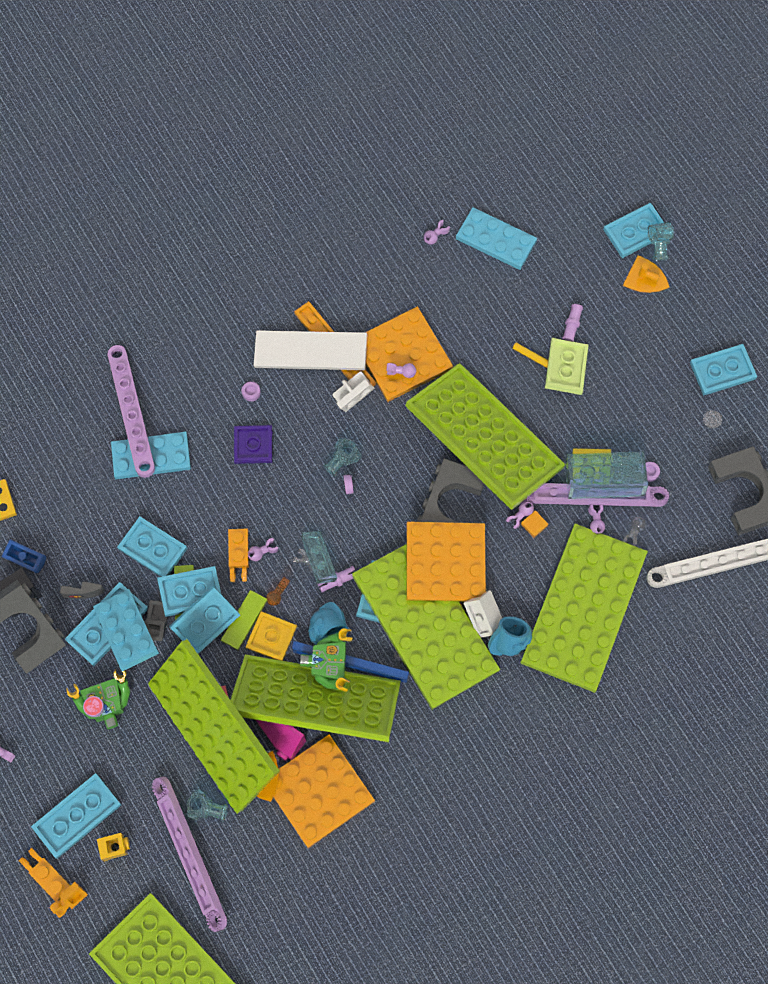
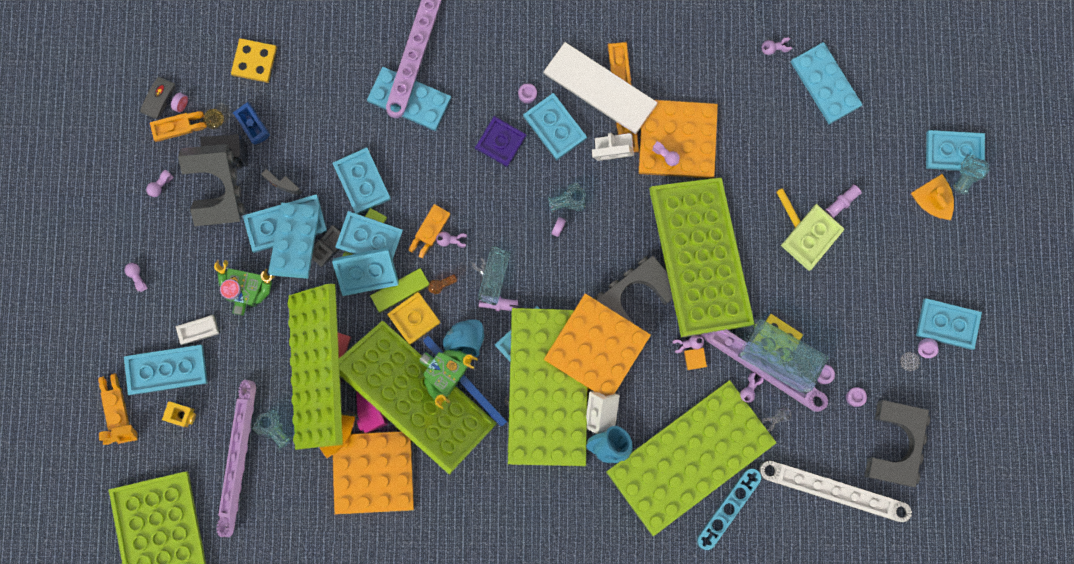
camera: 25 degrees right, 10 degrees up
(83, 764) = (197, 330): none -> white tile
(292, 404) = (555, 126): none -> medium azure plate
(640, 639) = (721, 515): none -> medium azure beam
(688, 474) = (856, 397): none -> lavender tile
(719, 398) = (928, 348): none -> lavender tile

